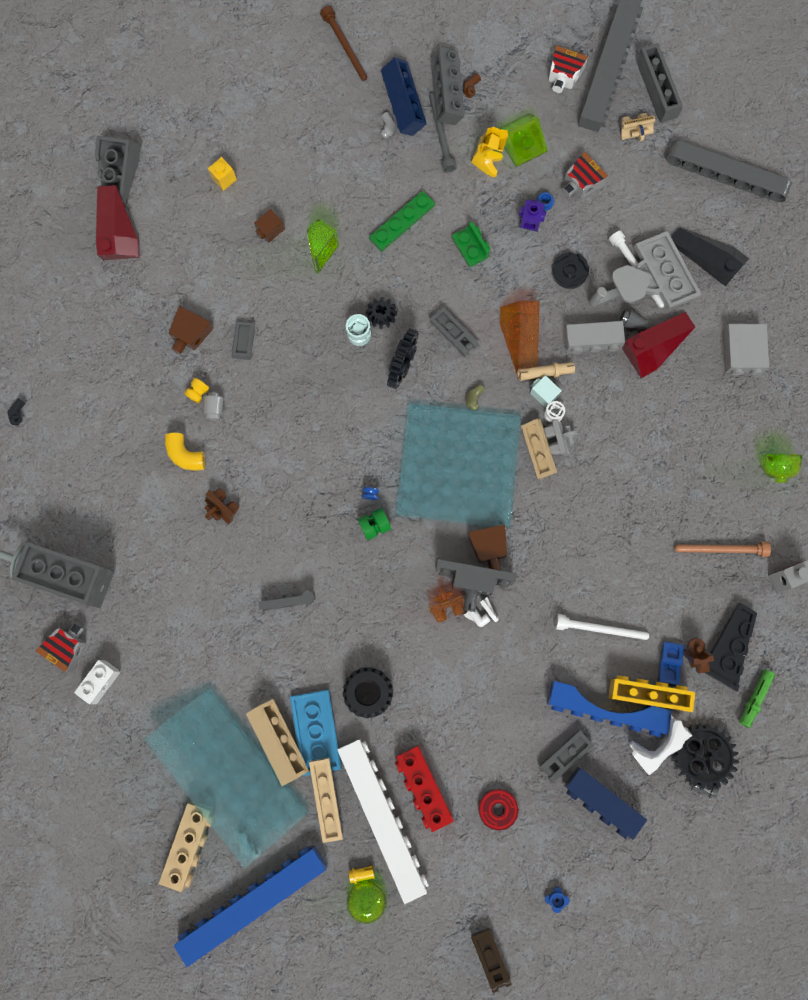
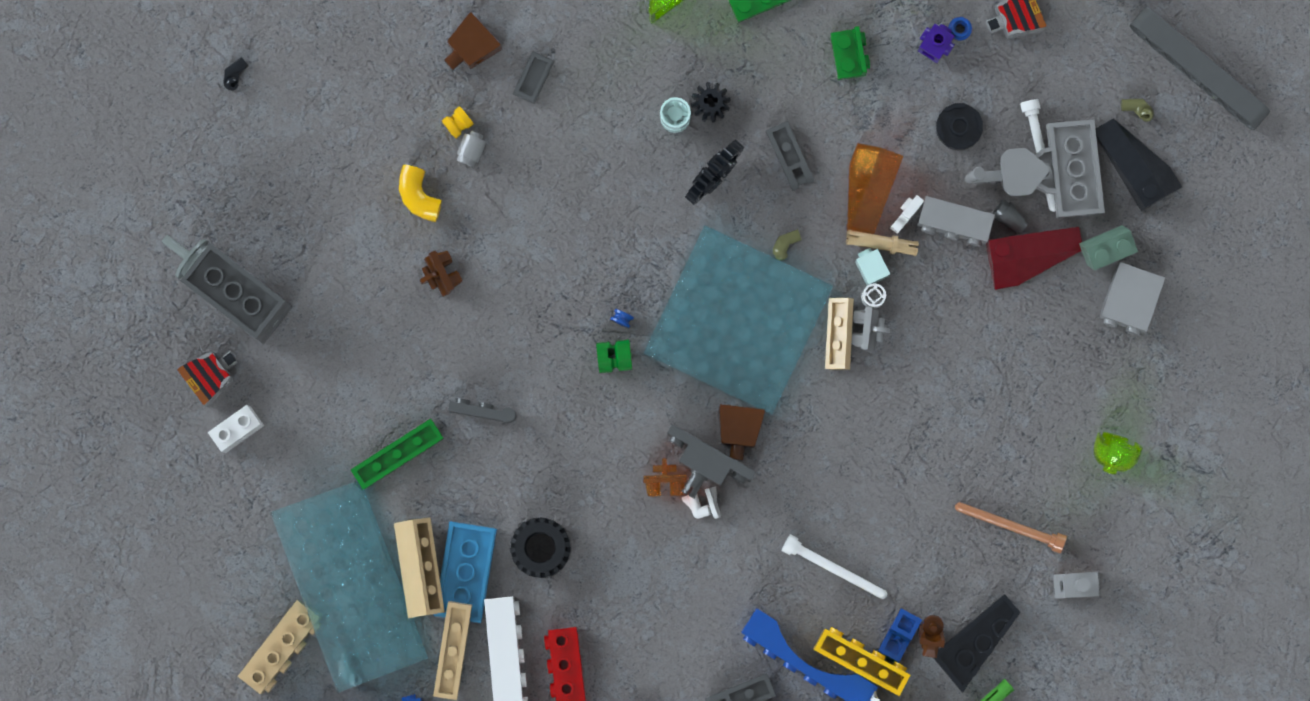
camera: 20 degrees right, 5 degrees up
(231, 658) = (397, 454): none -> green plate
(556, 339) = (909, 209): none -> white plate
(695, 212) = (1139, 106): none -> olive arm
(715, 317) = (1108, 247): none -> sand green brick

